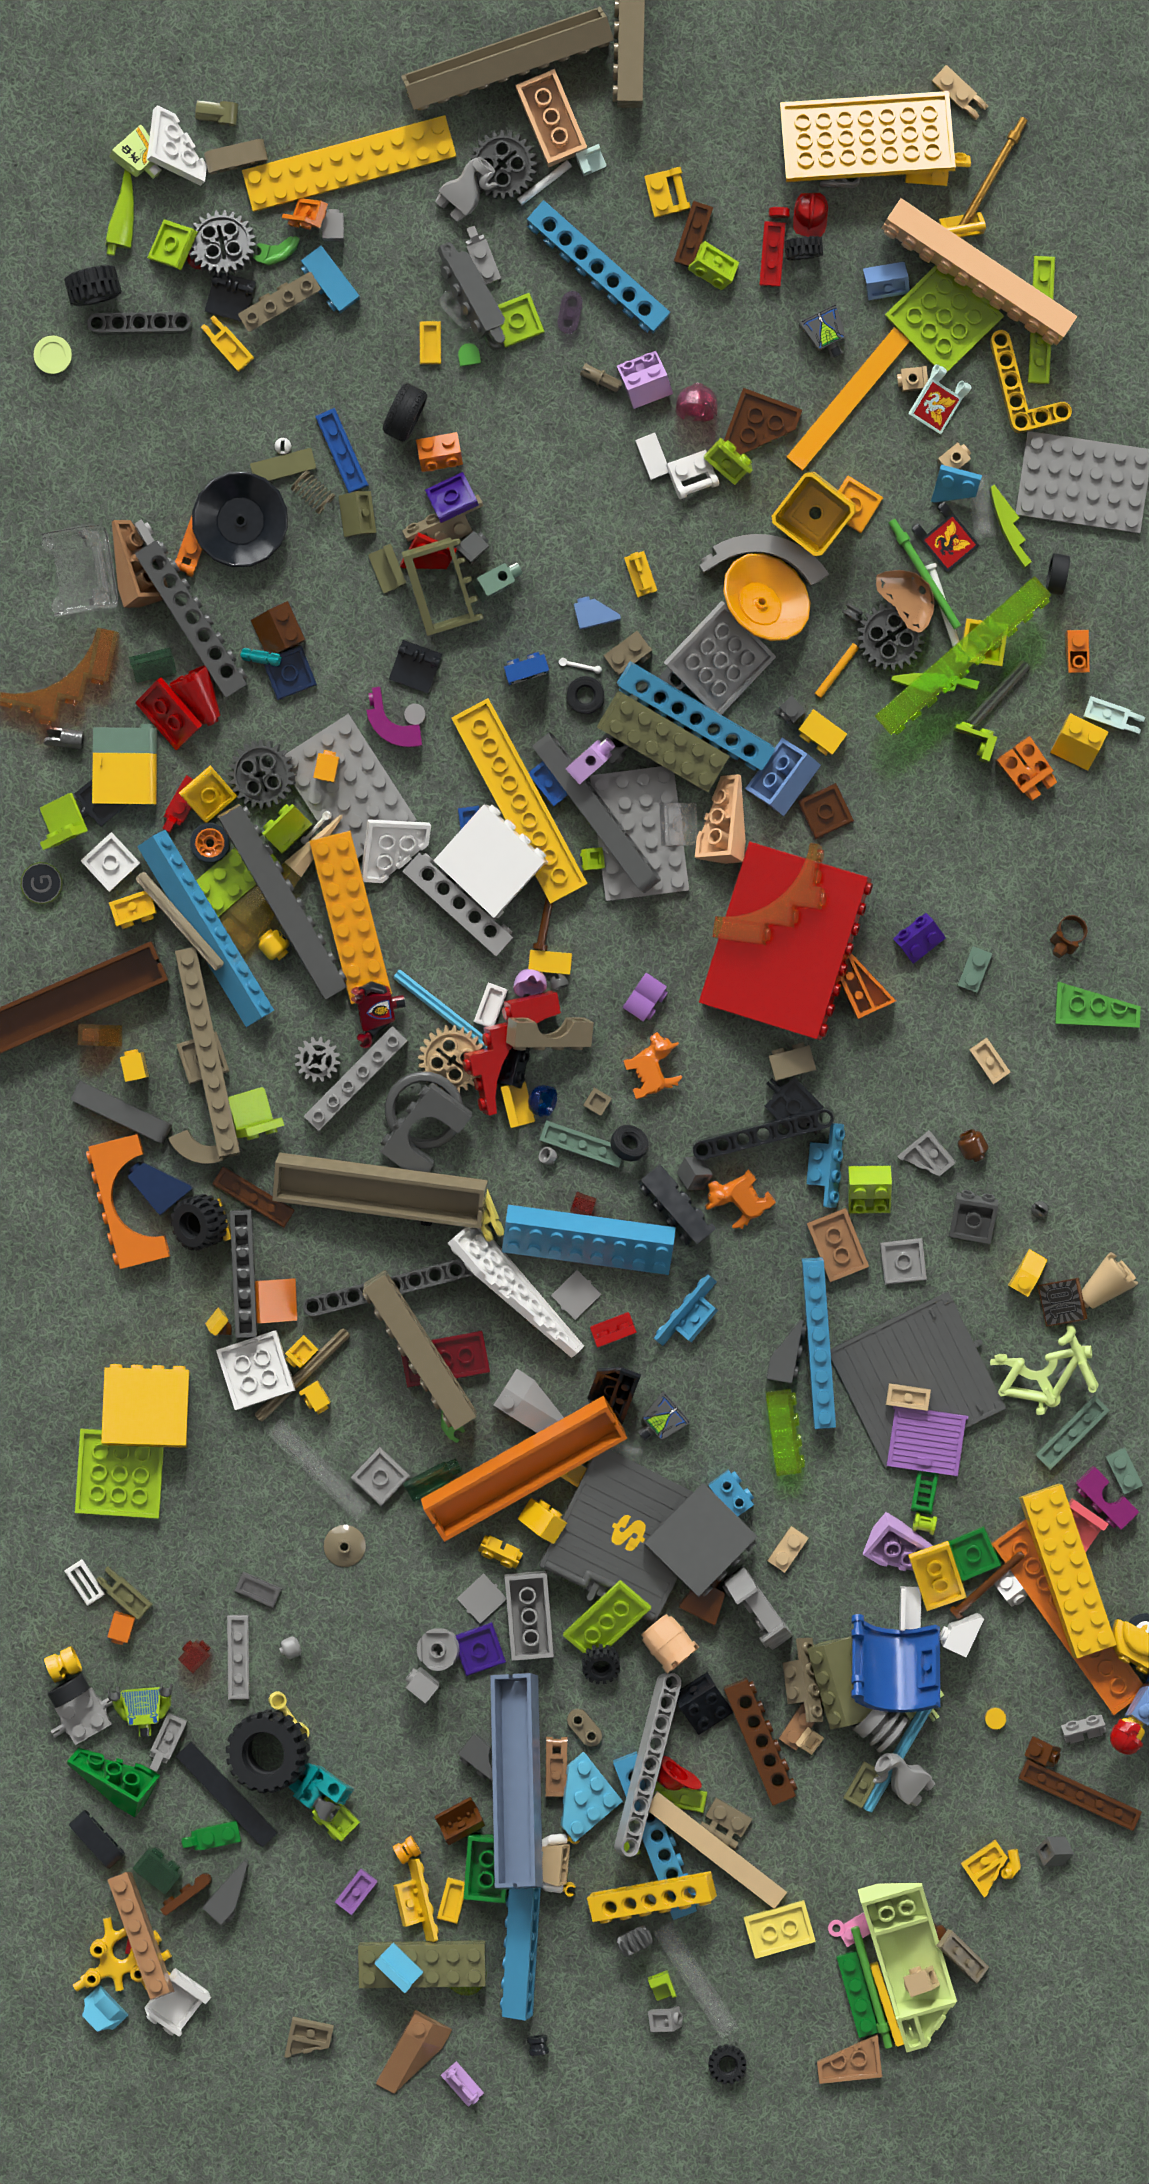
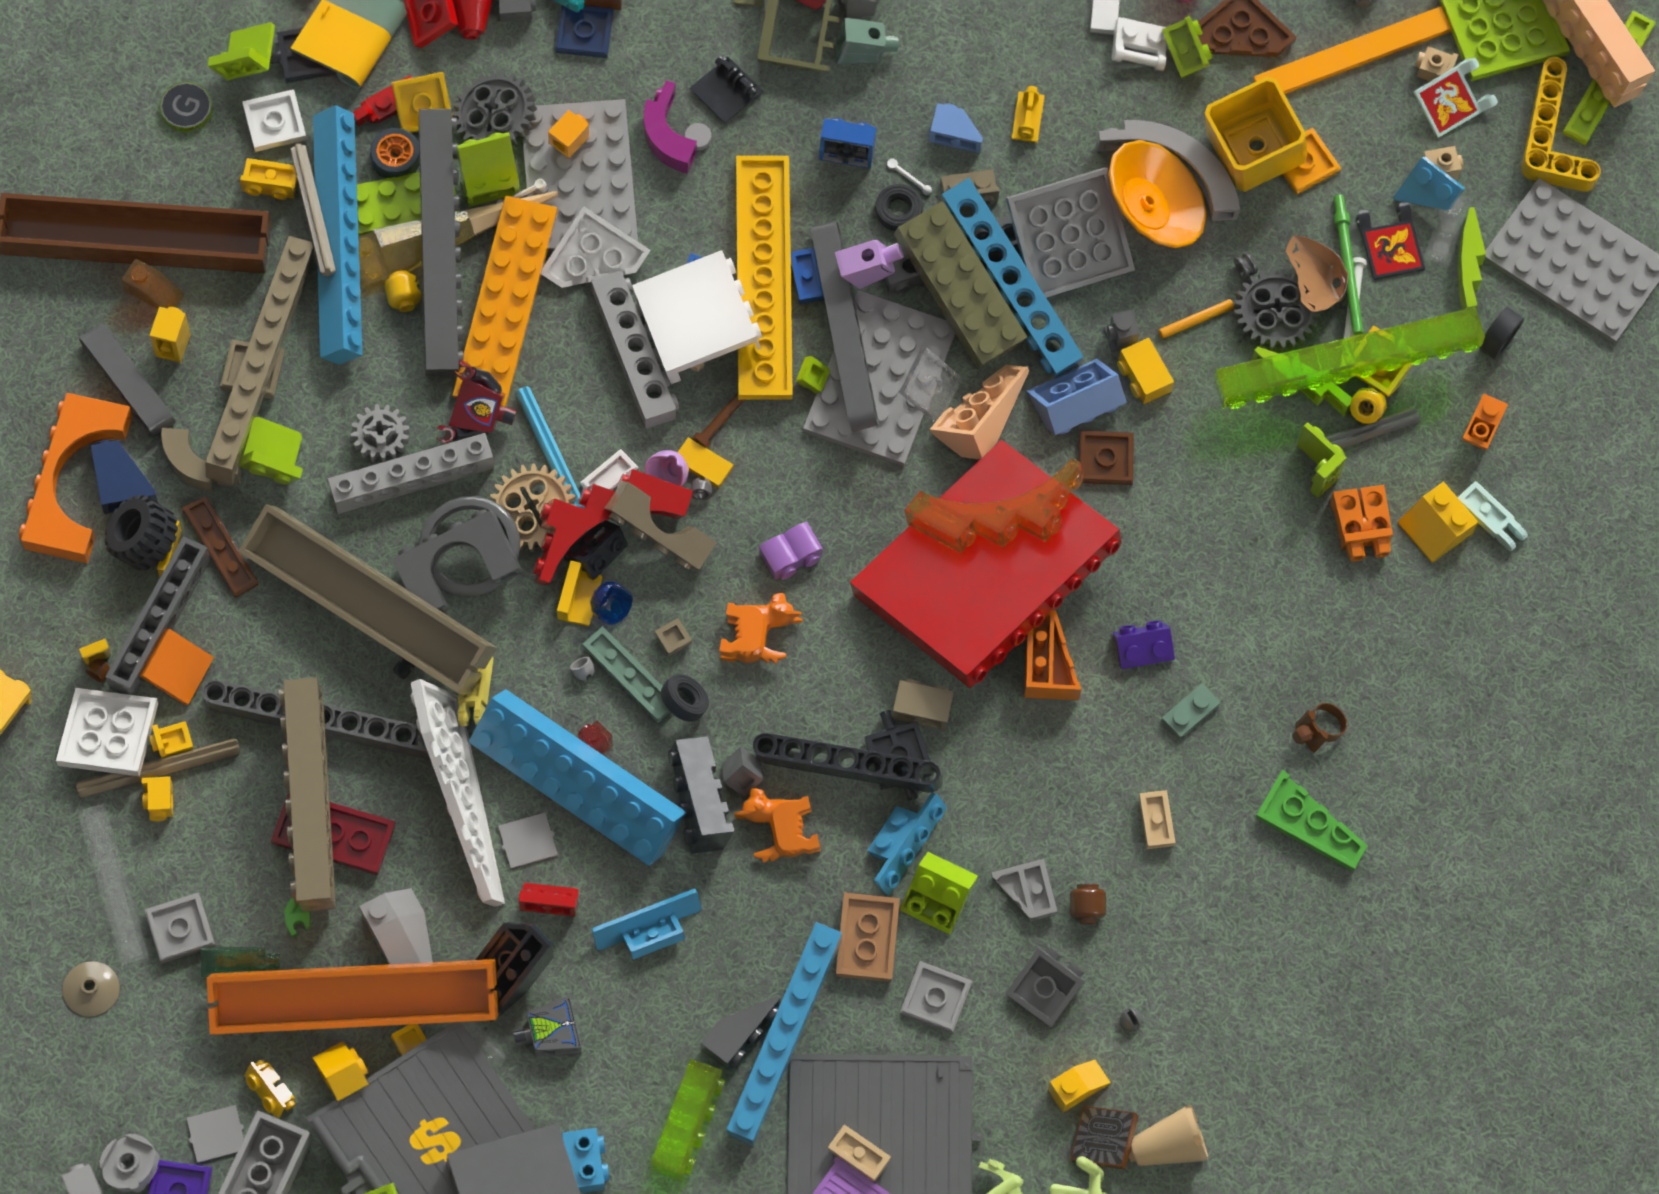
camera: 25 degrees right, 20 degrees down
(990, 678) = (1365, 413): none -> yellow head

